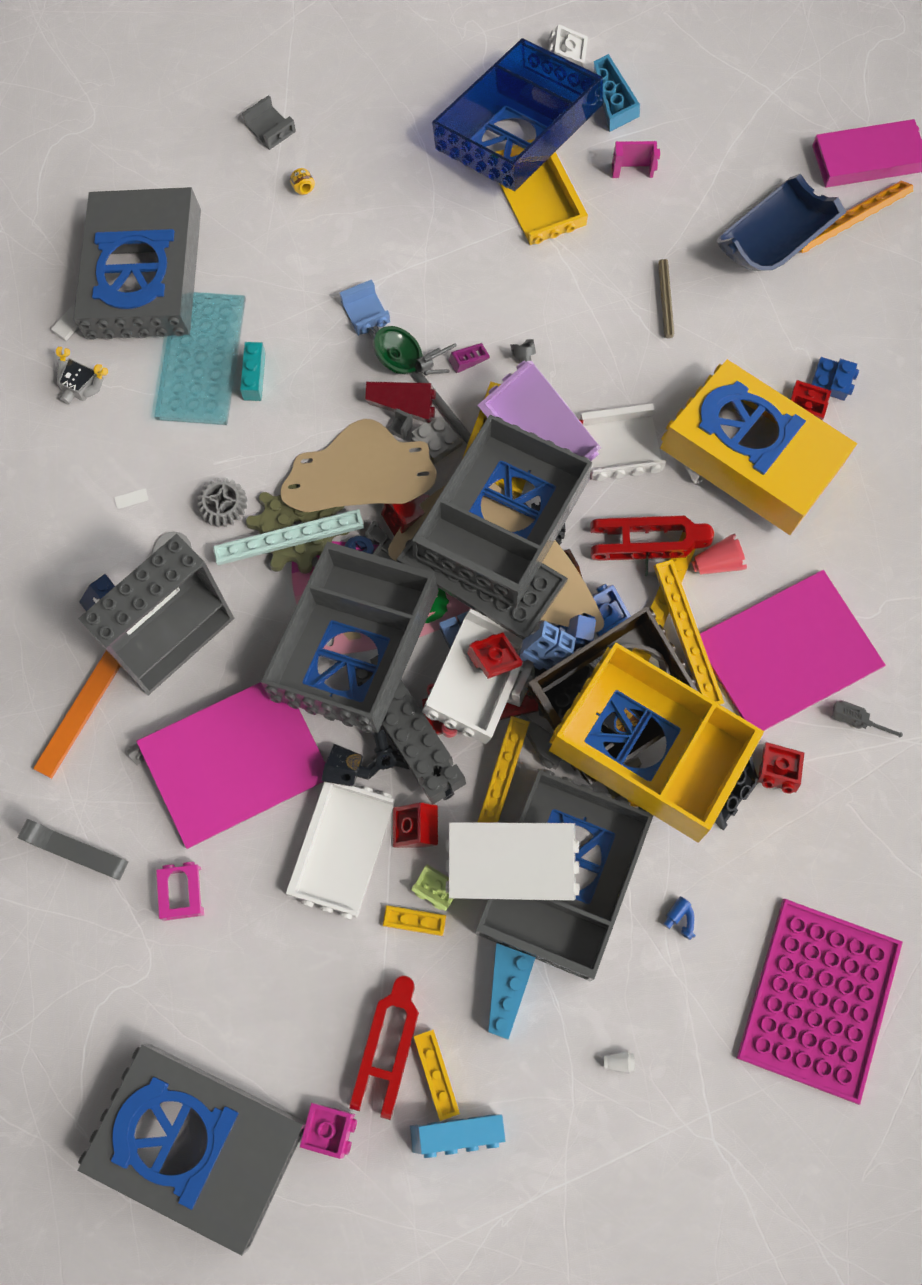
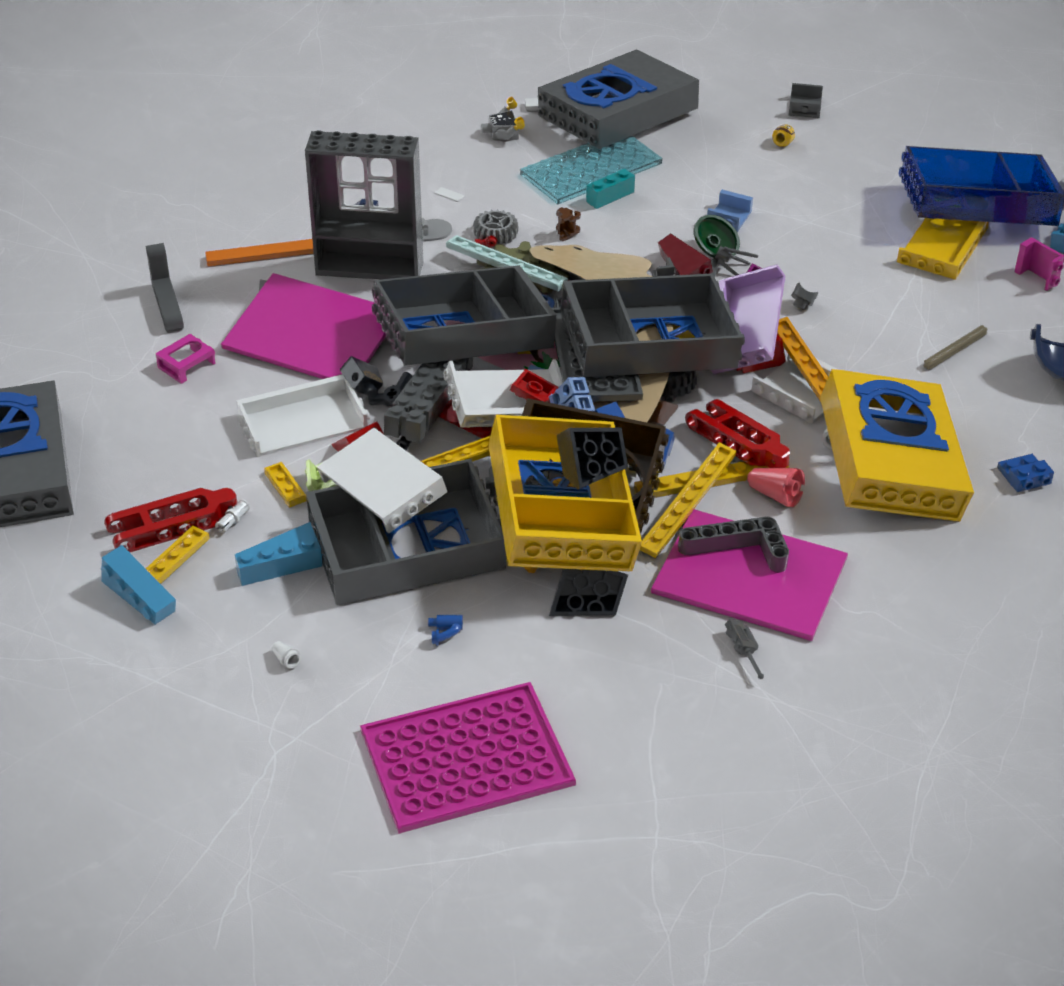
camera: 50 degrees right, 30 degrees down
(238, 521) = (489, 242): none -> red arm
(273, 445) = (567, 223): none -> reddish brown piece
(328, 1131) = (77, 520): dark pink plate -> none
(424, 993) = (232, 516): none -> white pin
(615, 423) = (802, 356): none -> light orange plate
(658, 698) = (591, 454): none -> black wedge
(757, 633) = (738, 534): none -> dark grey beam
(781, 768) = (640, 616): red plate -> none
(811, 398) = (983, 466): red plate -> none

